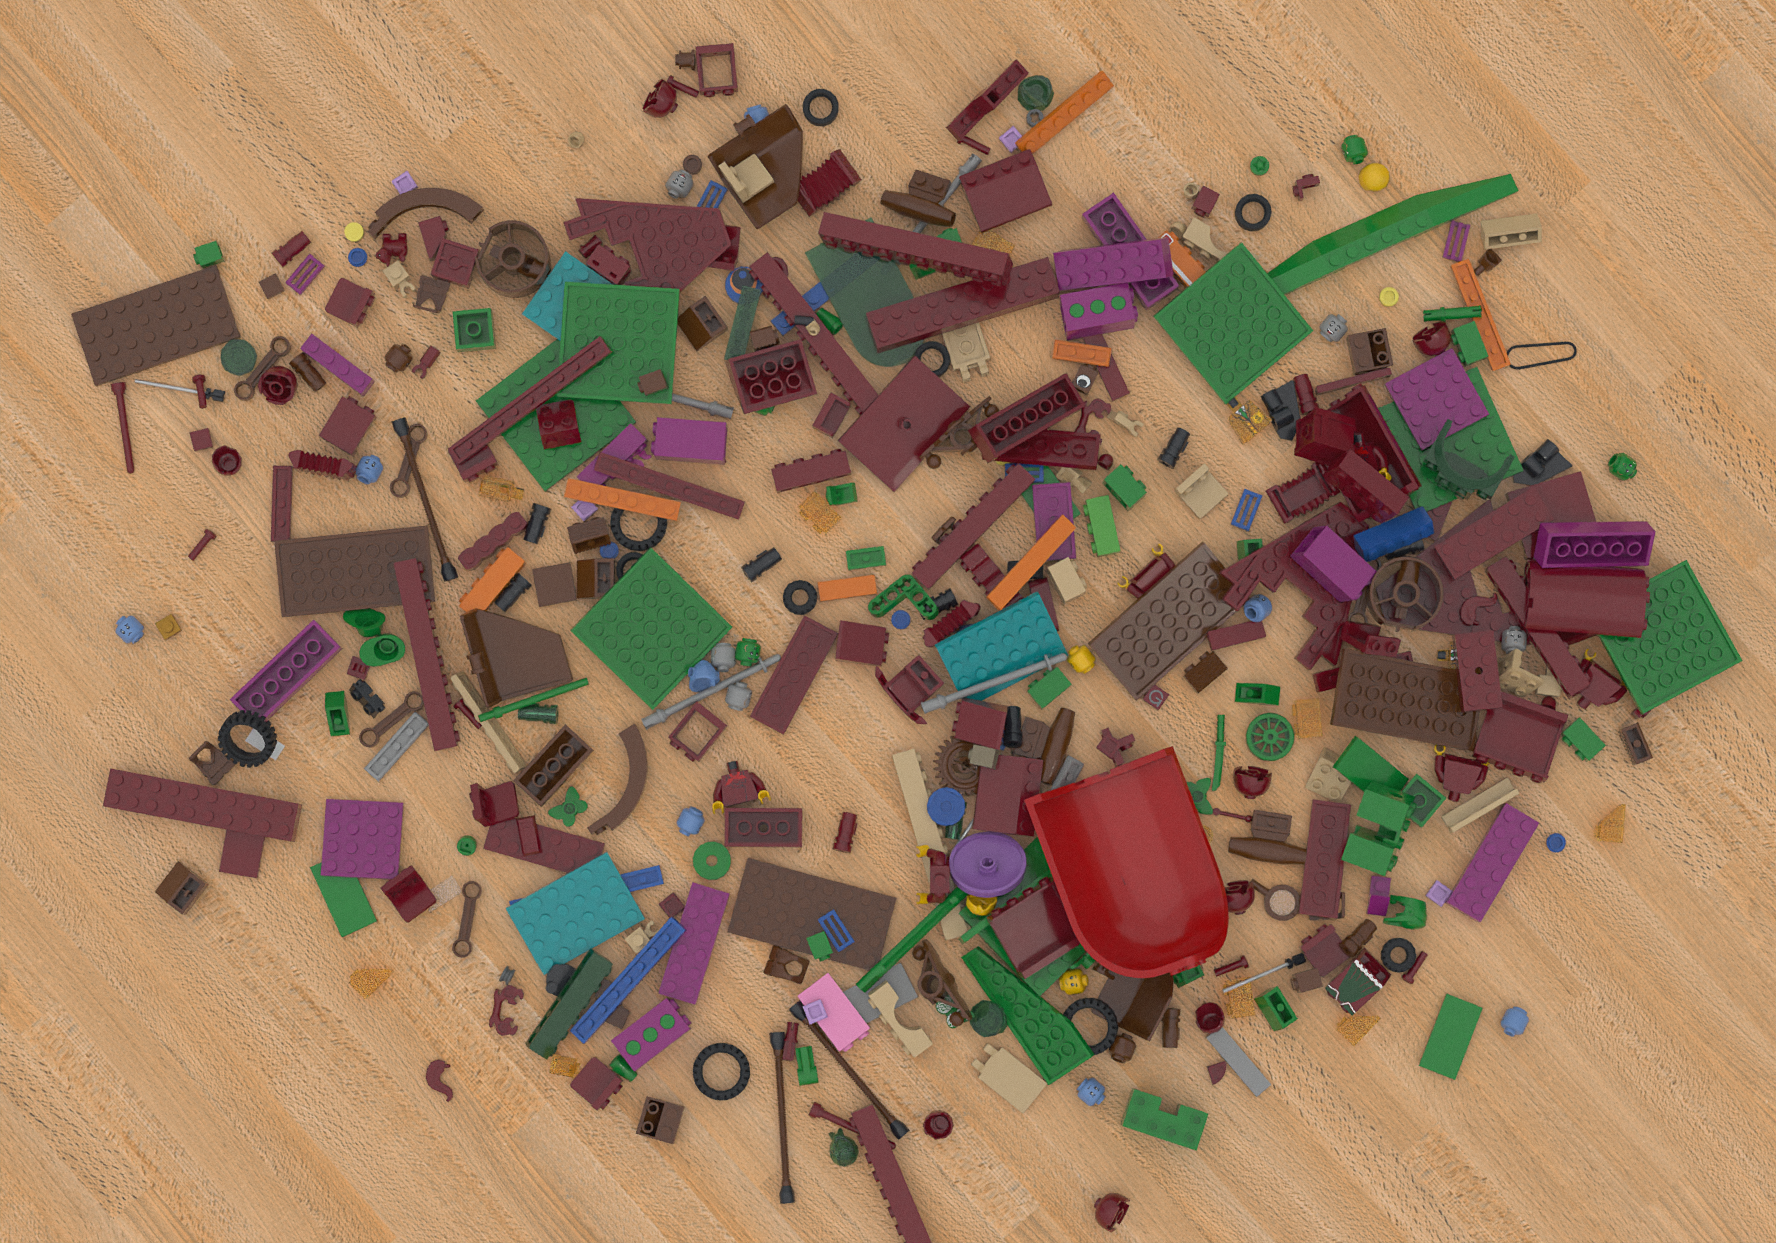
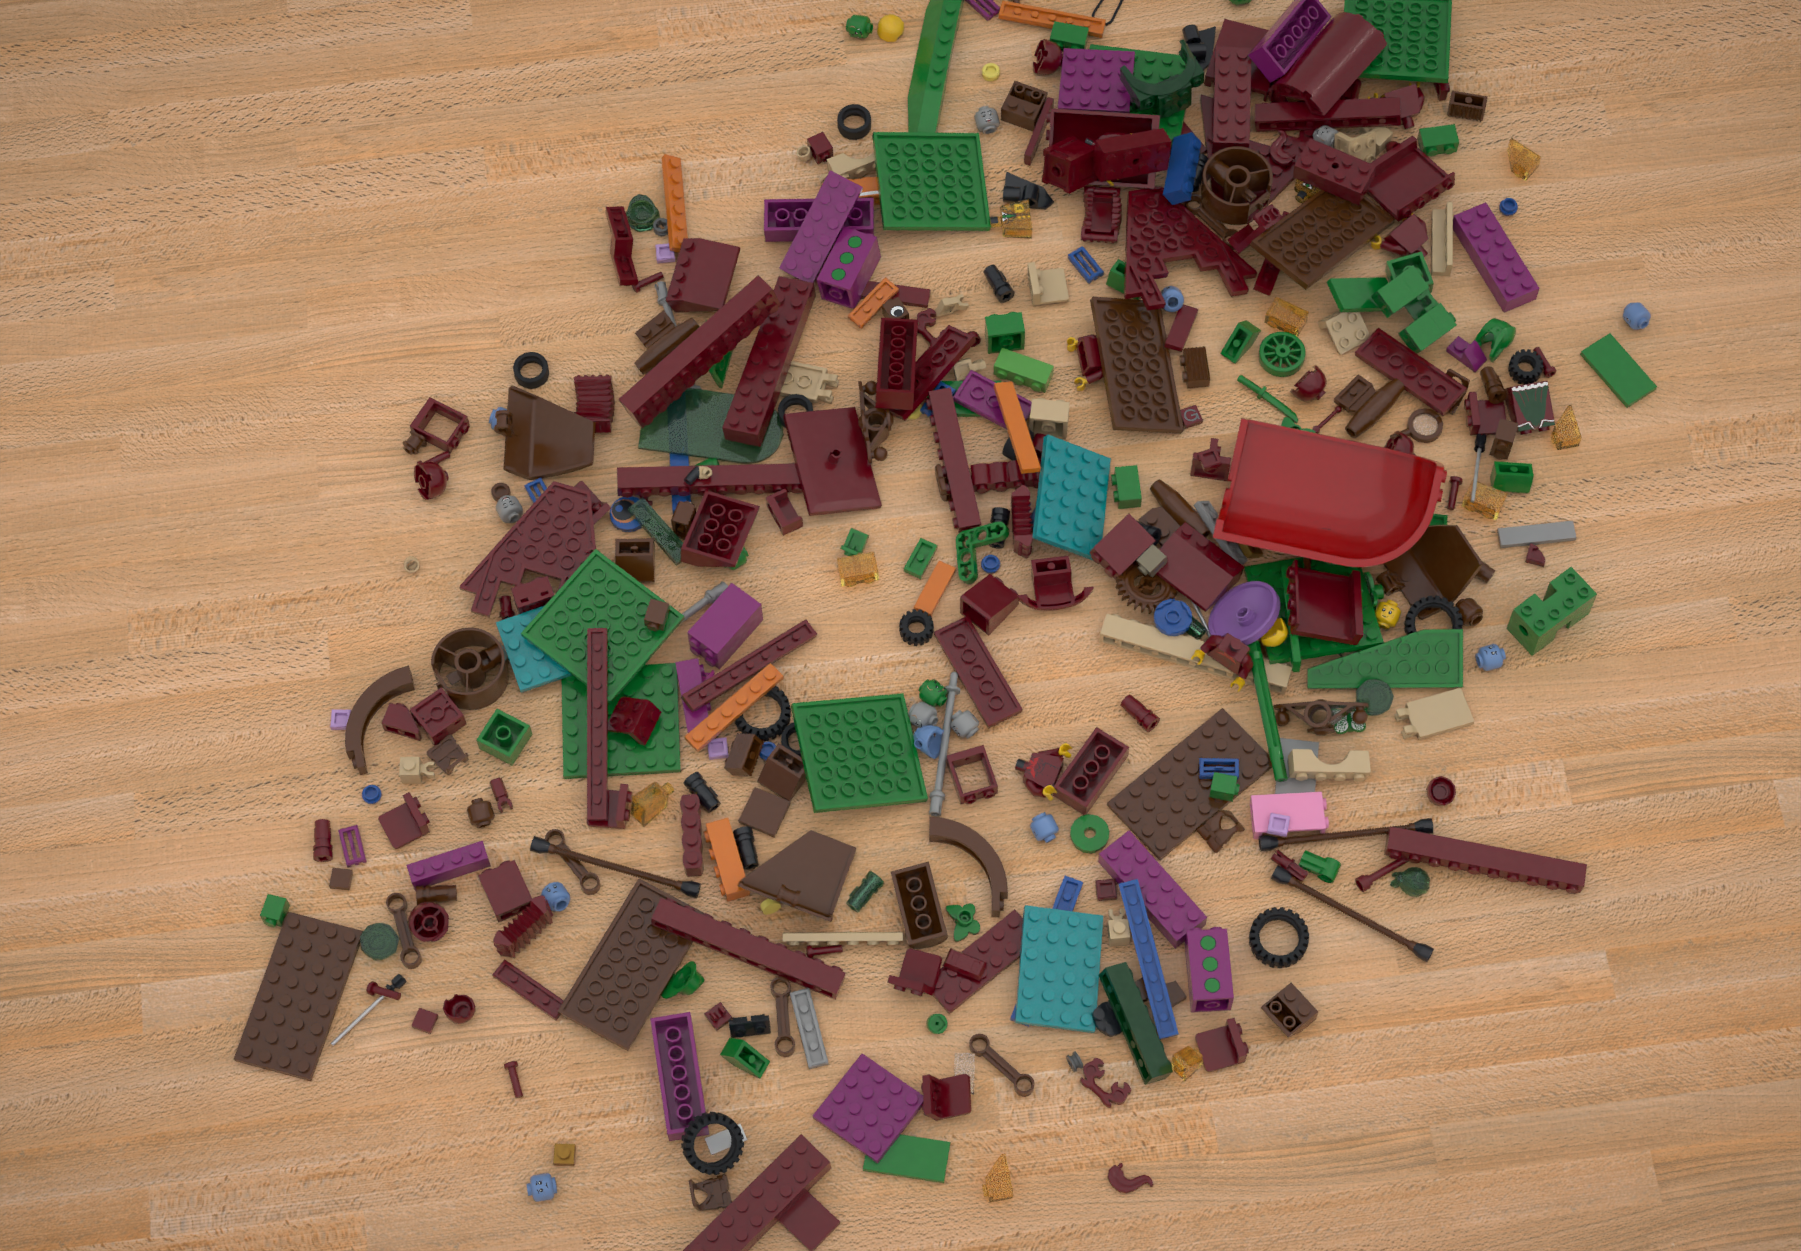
camera: 55 degrees left, 20 degrees down
(119, 391) = (329, 1061): dark red piece -> none
(354, 232) = (348, 784): light yellow tile -> none
(382, 650) = (718, 981): green piece -> none
(394, 248) = (386, 758): dark red animal -> none
(498, 711) = (841, 918): green bar -> none
(622, 1068) = (1218, 1016): green cone -> none
(747, 177) = (543, 453): tan bracket -> none
(764, 562) = (867, 635): black axle -> none
(811, 471) = (818, 555): dark red brick -> none
(941, 701) = (1082, 567): light grey bar -> none
(1081, 659) = (1120, 449): yellow head -> none
(1110, 1210) = (1602, 701): dark red cylinder -> none
(1210, 1018) = (1486, 530): dark red hair -> none
(1259, 165) = (821, 98): green tile -> none
(1305, 393) = (1024, 169): dark red axle -> none
(1307, 181) = (859, 72): dark red bracket -> none
(1333, 564) = (1176, 217): magenta brick -> none
(1438, 893) = (1493, 310): lavender tile -> none
(1452, 313) = (1033, 40): green pin -> none

